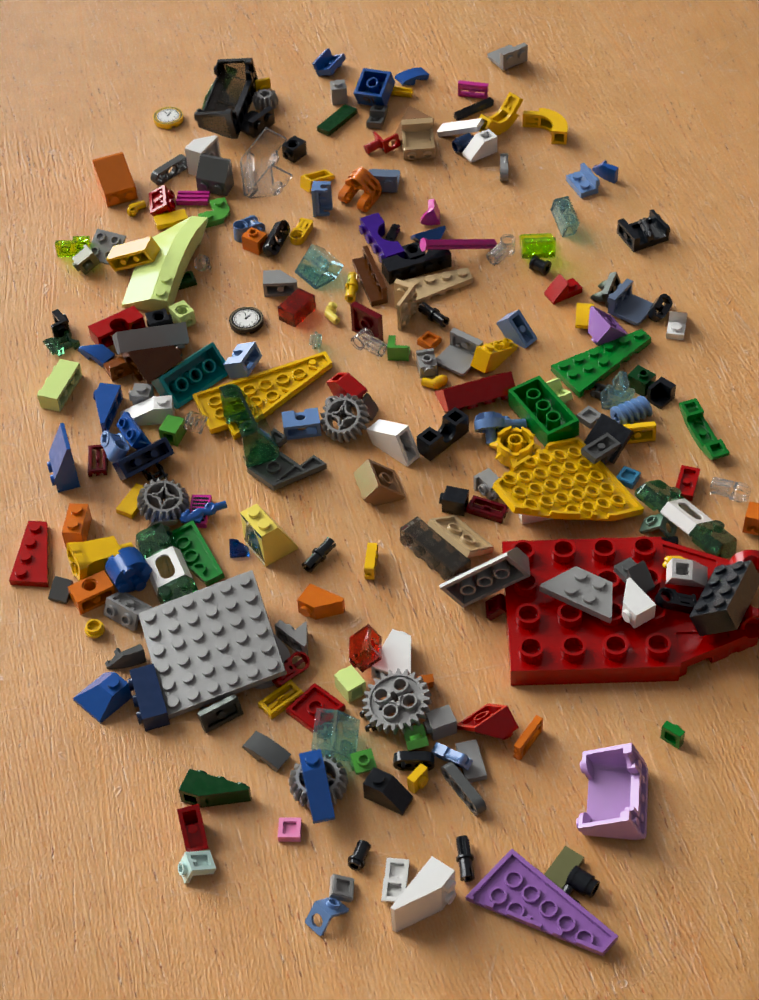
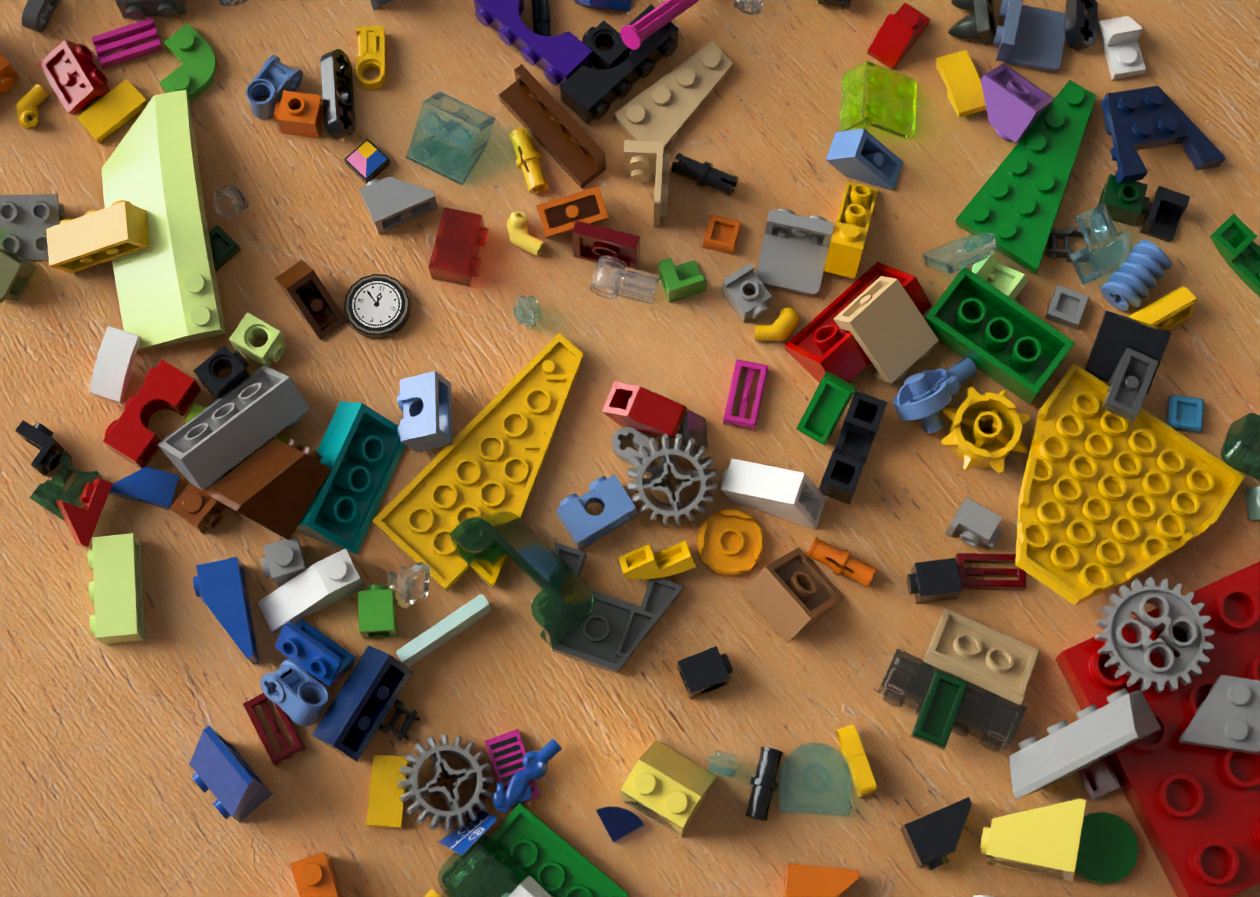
camera: 25 degrees left, 25 degrees up
(65, 351) = (84, 520): none -> red slope
(112, 304) = (113, 364): none -> white slope
(199, 446) = (444, 630): none -> light aqua tile
(216, 307) = (311, 299): none -> reddish brown slope
(275, 265) = (367, 161): none -> tile
(303, 540) = (723, 764): none -> clear light blue plate
(315, 449) = (644, 564): none -> yellow slope
(316, 500) = (704, 672): none -> black brick
(345, 564) = (815, 782): none -> clear light blue tile
(346, 300) = (560, 214): none -> orange brick
(356, 455) = (730, 543): none -> light orange tile
(396, 601) = (936, 834): none -> black slope
(406, 404) = (740, 420): none -> dark pink tile
(418, 487) = (841, 562): none -> orange pin
(423, 545) = (939, 709): none -> dark green tile
(434, 417) = (826, 408): none -> green tile
(444, 612) = (1037, 840): none -> light yellow slope
(479, 639) = (1106, 849): none -> green tile
(487, 390) = (888, 328): none -> tan panel
(539, 309) = (878, 99): none -> clear neon green bracket
(545, 373) = (961, 252): none -> clear light blue tile
(553, 543) = (1173, 612): none -> light grey gear
(675, 354) = (1151, 120): none -> dark blue wing

